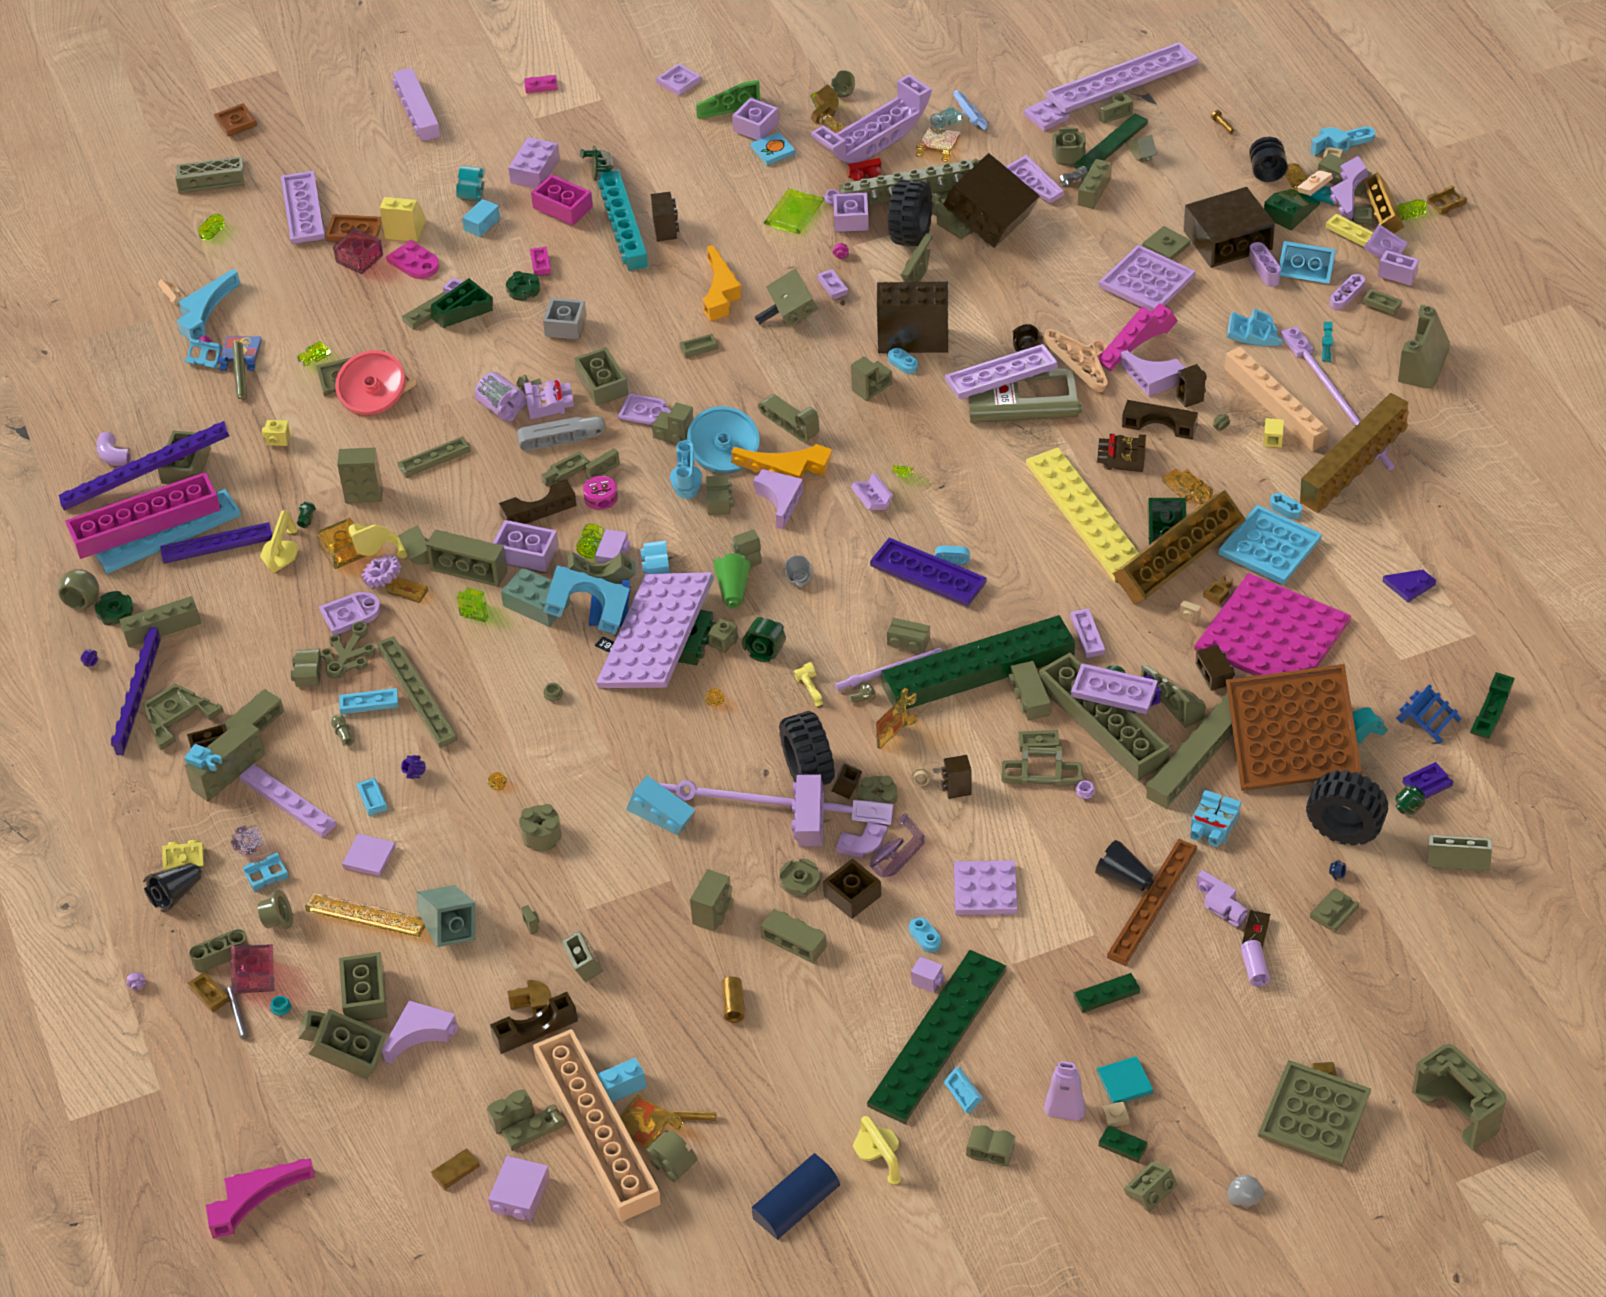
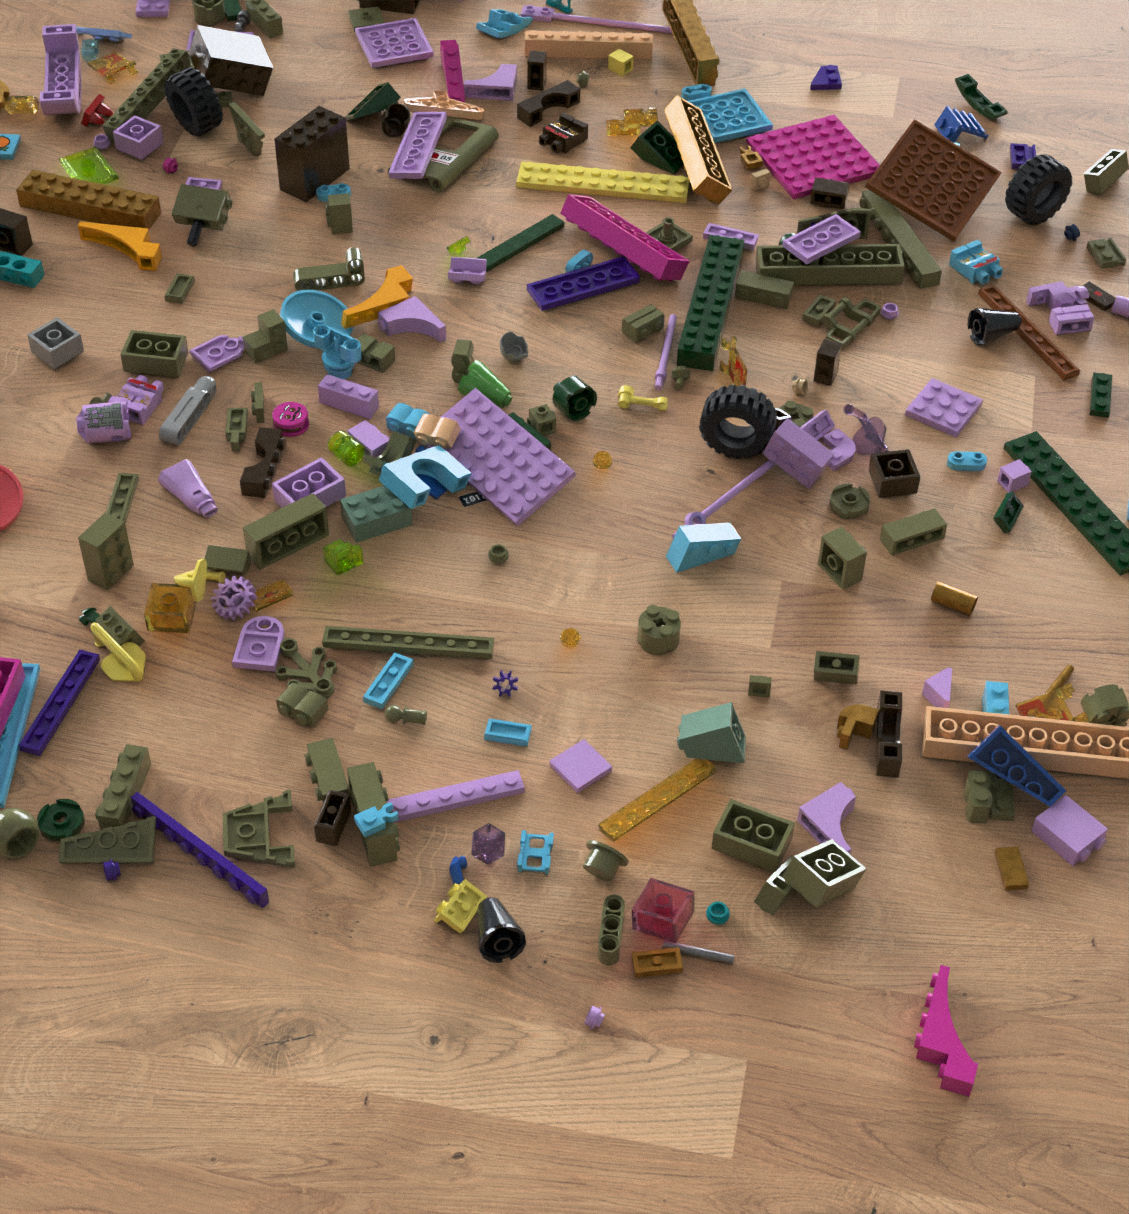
camera: 60 degrees left, 0 degrees up
(111, 648) = (124, 844): none -> olive wing
(217, 835) = (455, 869): none -> blue arm
(304, 529) = (118, 627): none -> olive bracket
(477, 478) = (187, 485): none -> lavender piece
(544, 1116) = (1010, 761): none -> blue wedge
(616, 1036) = (938, 688): none -> lavender slope
(645, 579) = (437, 431): none -> light nougat brick
(652, 509) = (348, 396): none -> lavender brick
(747, 235) = (88, 200): none -> pearl gold brick
(875, 990) = (1008, 512): none -> dark green plate
(948, 505) = (522, 241): none -> dark green tile
(1003, 563) = (624, 238): none -> dark pink brick
(1042, 316) = (375, 101): none -> dark green slope
(1044, 589) = (670, 234): none -> olive plate
(1194, 923) = (1071, 319): none -> lavender brick

